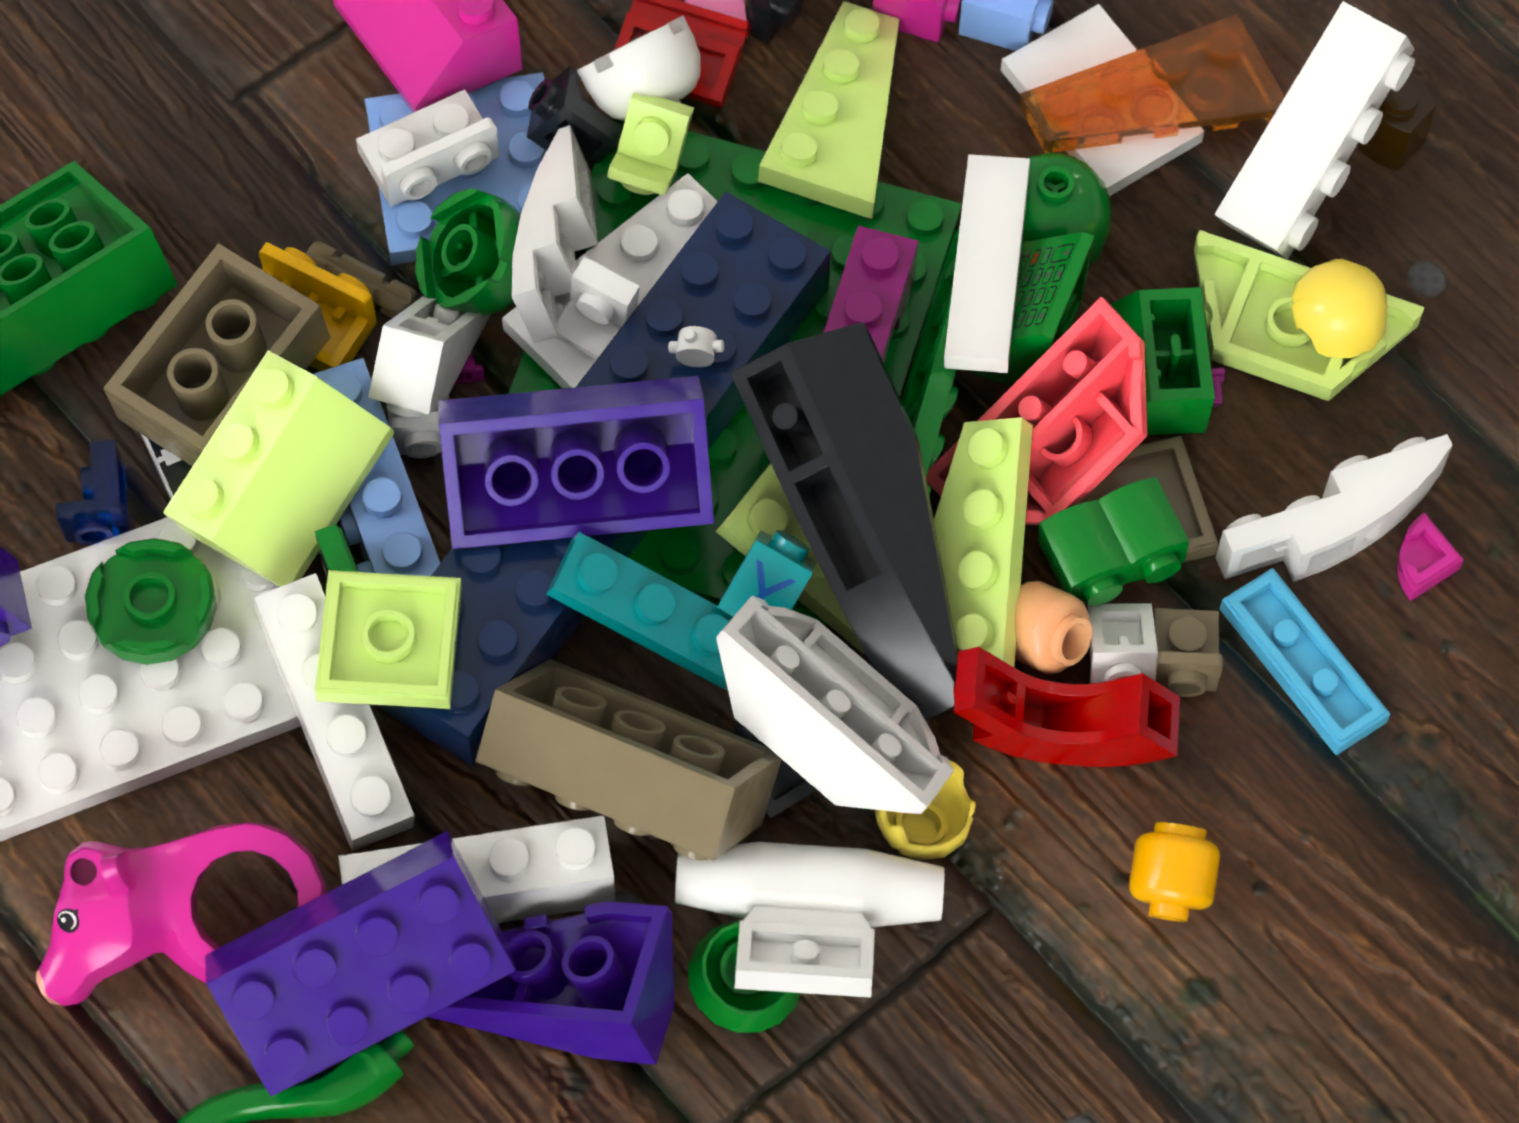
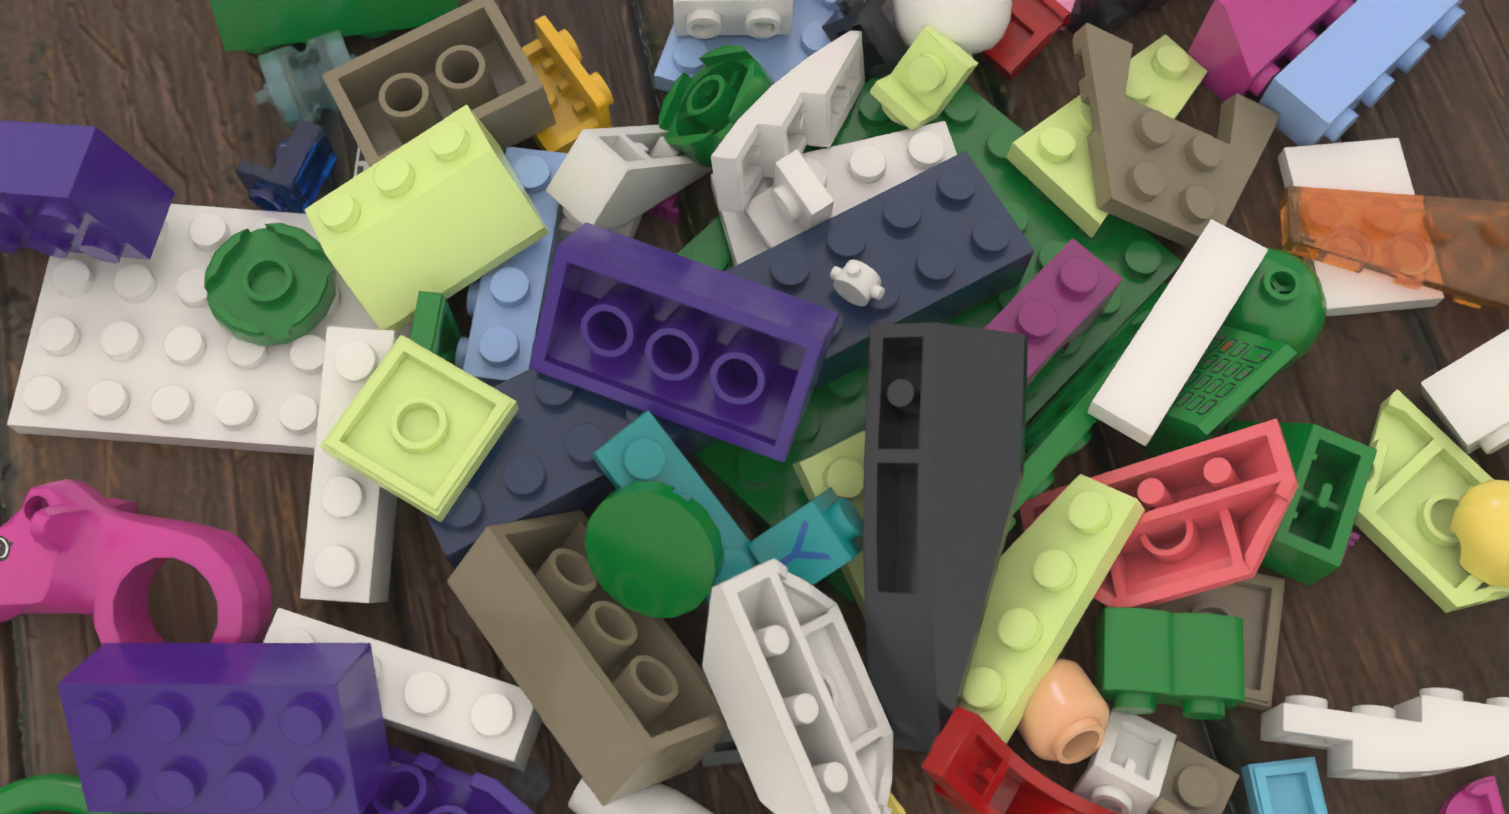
camera: 25 degrees right, 5 degrees up
(65, 408) = (296, 78): none -> clear light blue wheel
(392, 296) = (625, 93): dark tan axle -> none
(643, 645) = (654, 549): none -> green tile
(896, 129) = (1156, 166): none -> dark tan wing

